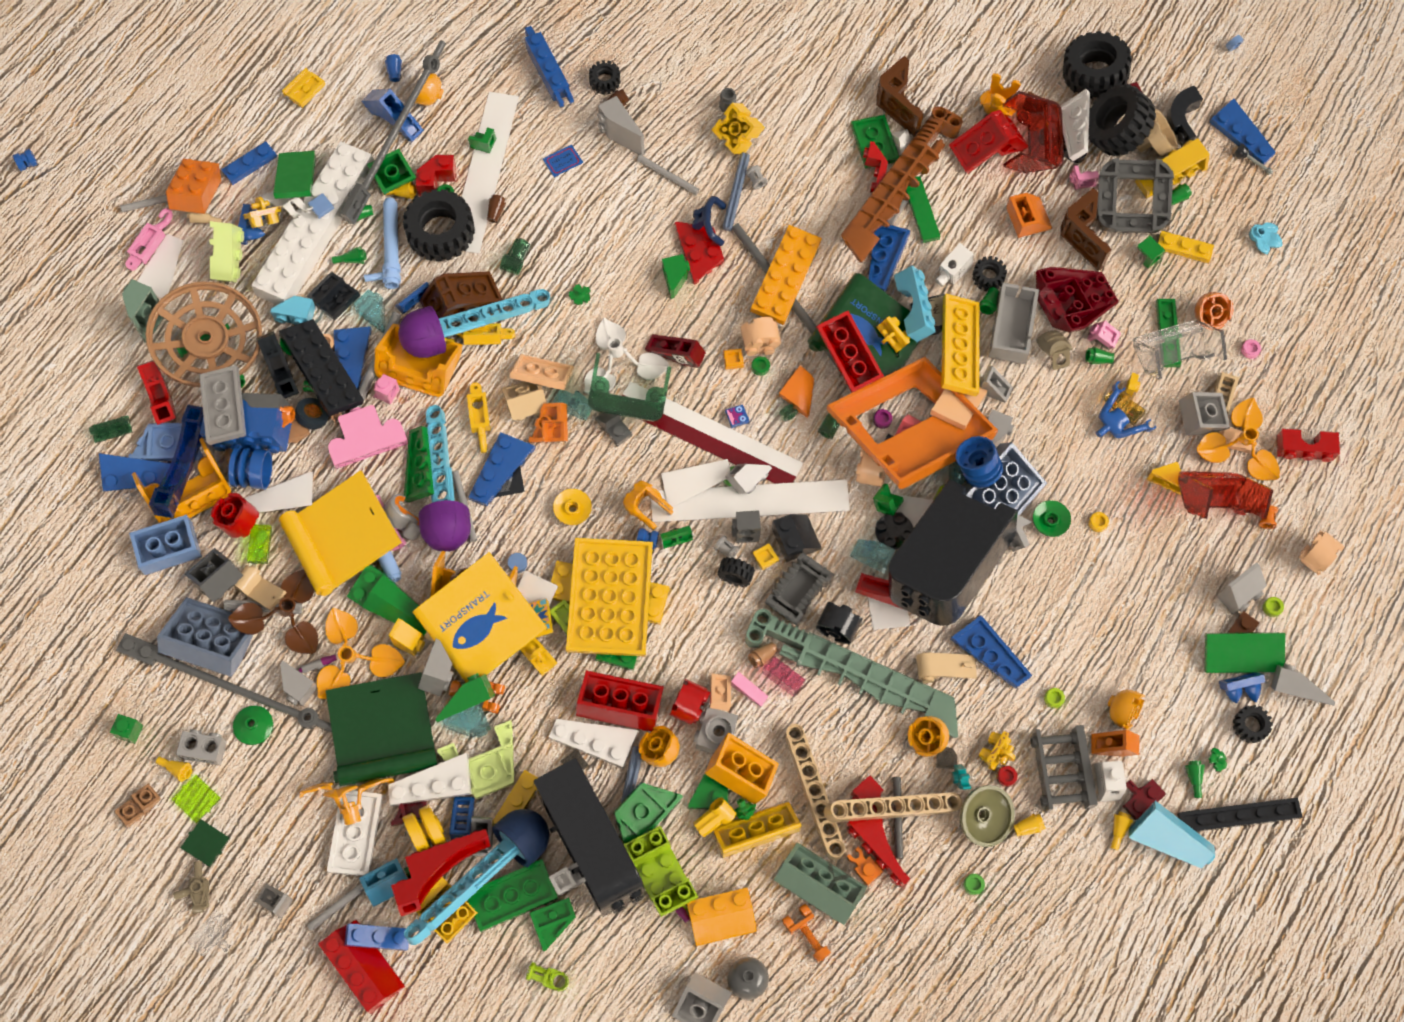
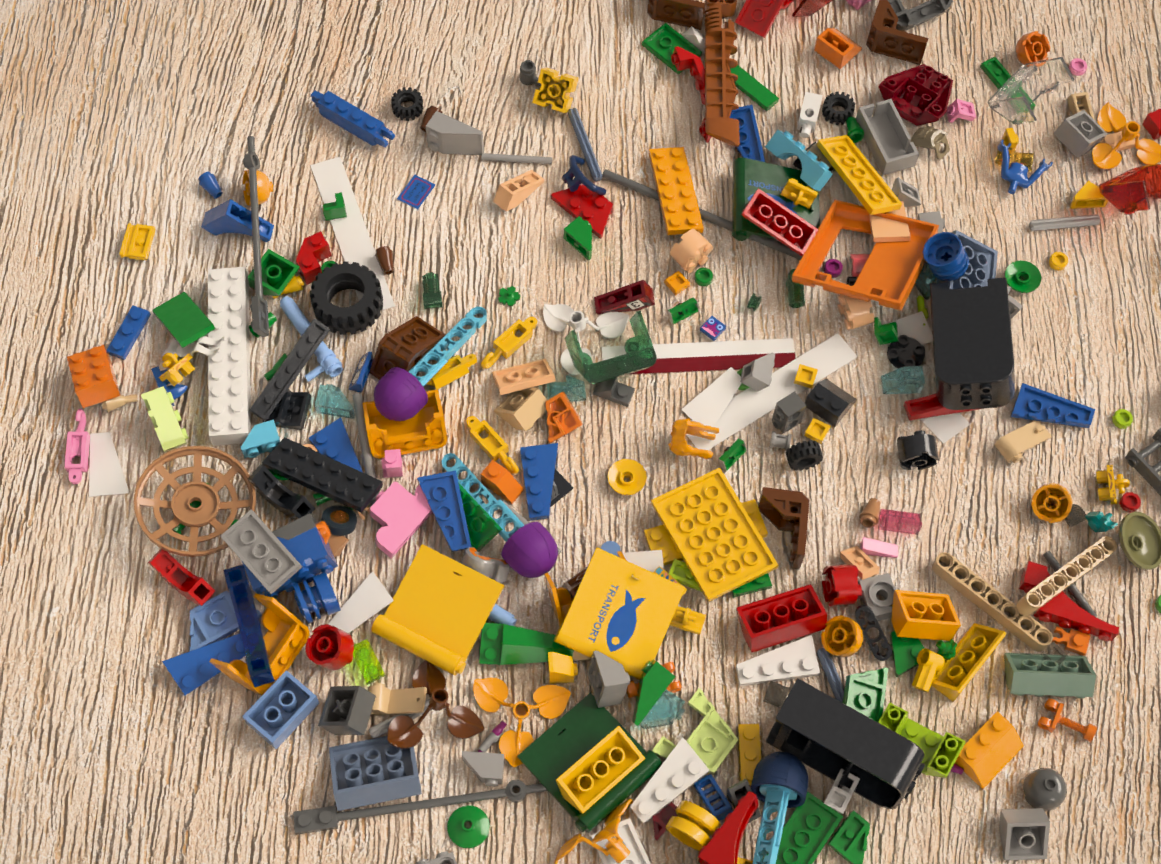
camera: 30 degrees left, 5 degrees down
(111, 429) = (155, 635): clear green hinge -> none
(139, 303) = (119, 507): sand green slope -> none
(143, 203) = (54, 414): light grey bar -> none
(321, 205) = (231, 332): medium blue tile -> none
(351, 263) = (289, 370): none -> black plate
(379, 739) = (599, 770): none -> yellow slope
(403, 447) = (446, 503): none -> blue wing
(464, 453) = (501, 482): none -> orange slope
(551, 335) = (508, 343): none -> yellow piece
(644, 535) = (705, 467): blue wheel -> none
(646, 203) = (516, 190): none -> light nougat slope
(688, 616) = (786, 505): none -> reddish brown bracket
(694, 773) = (885, 644): none -> black beam
(720, 385) = (682, 310): none -> green piece
(750, 173) = (595, 124): light grey bush -> none
(788, 502) = (805, 376): none -> yellow plate
(798, 588) = (862, 441): dark grey piece -> none
(799, 391) = (750, 280): orange slope -> none
(874, 678) = (972, 482): sand green piece -> none
(1098, 356) = (968, 130): green cone -> none
(1130, 489) = (1064, 222): none -> light grey axle
(1152, 251) = (952, 26): green panel -> none
(1186, 246) = (973, 13): yellow plate -> none

